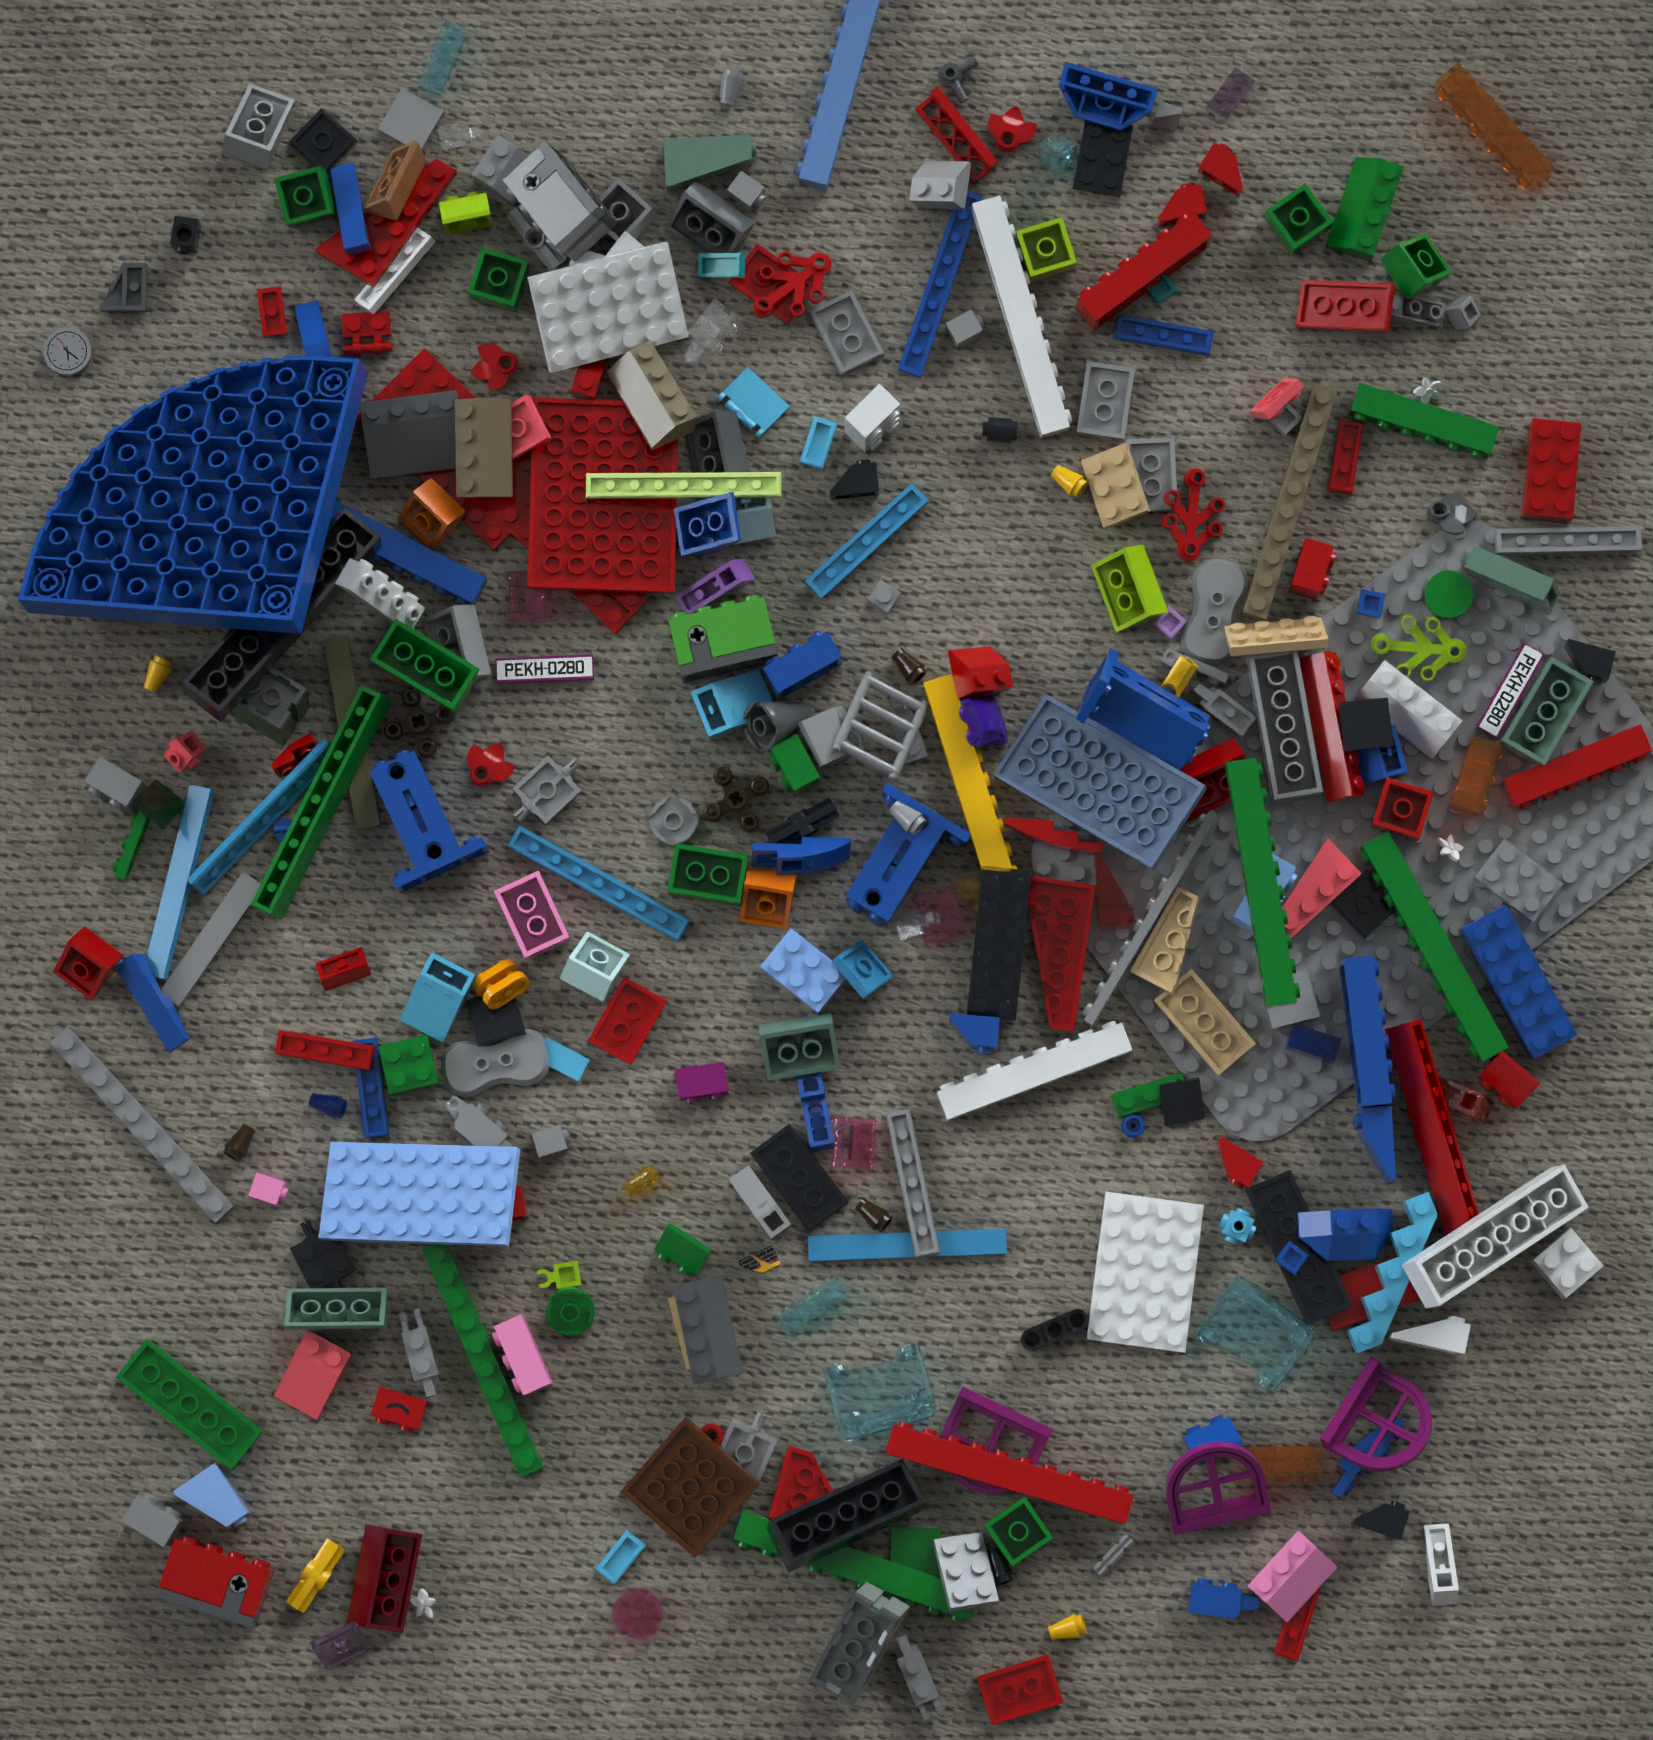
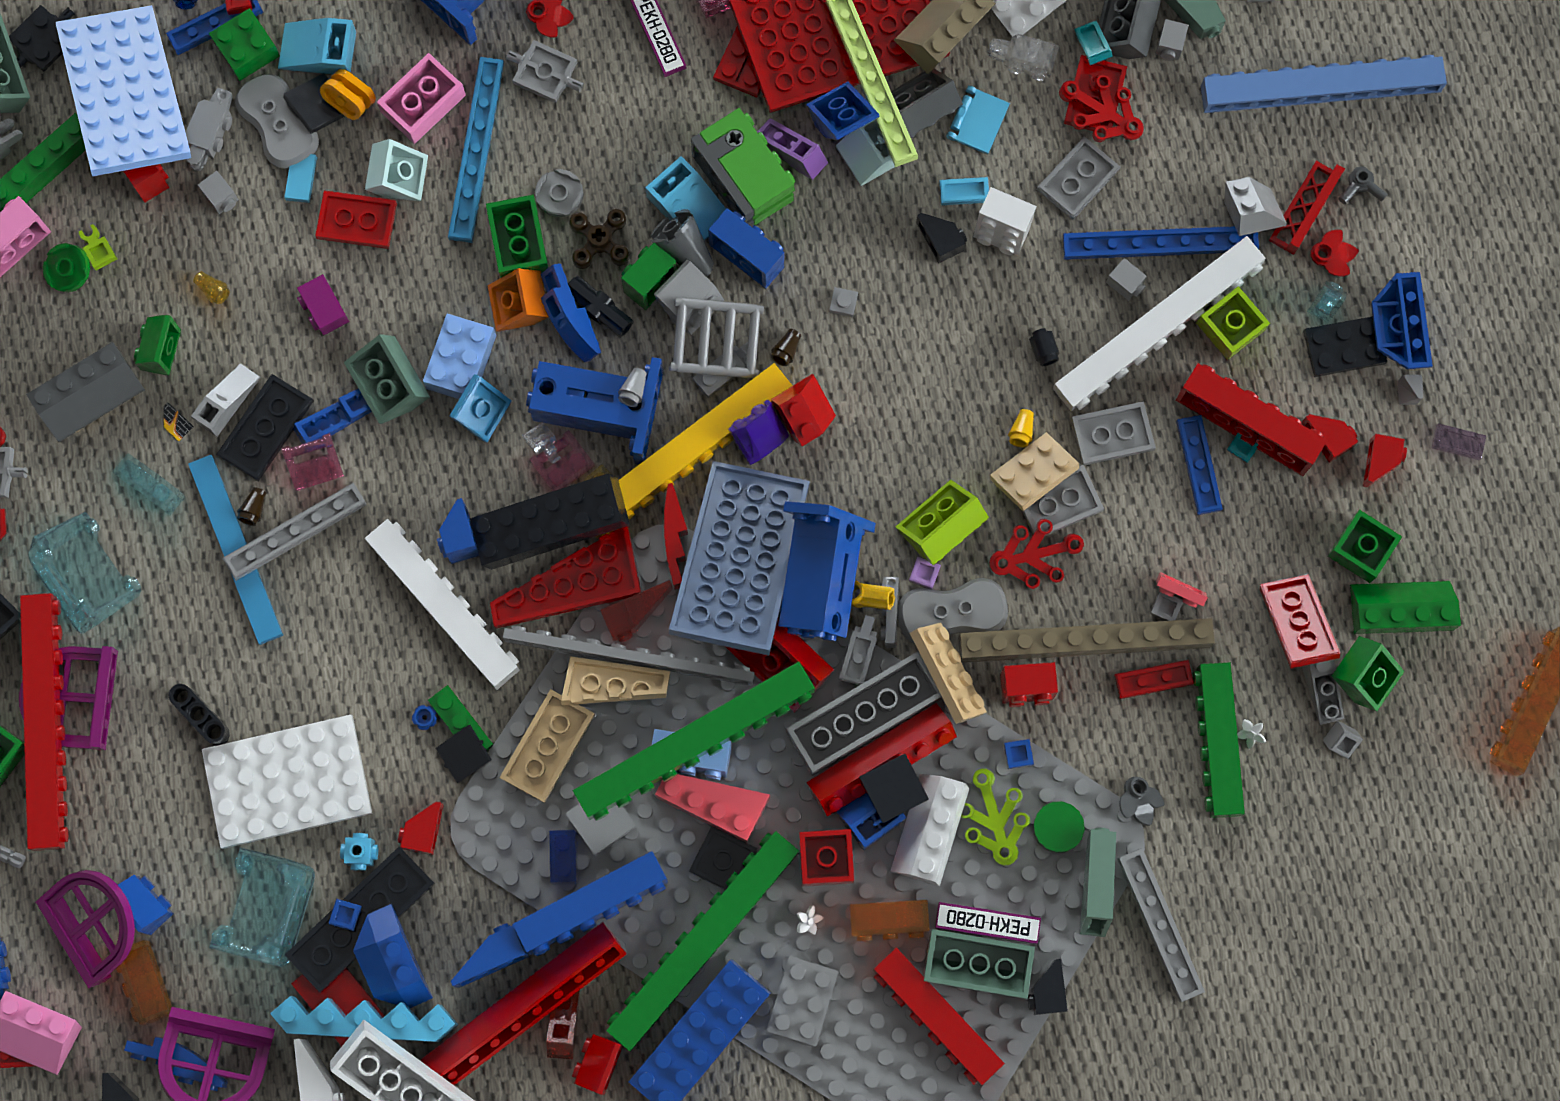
camera: 65 degrees right, 5 degrees down
(866, 541) = (889, 266): dark azure plate -> none
(1551, 471) = (1222, 882): red brick -> none

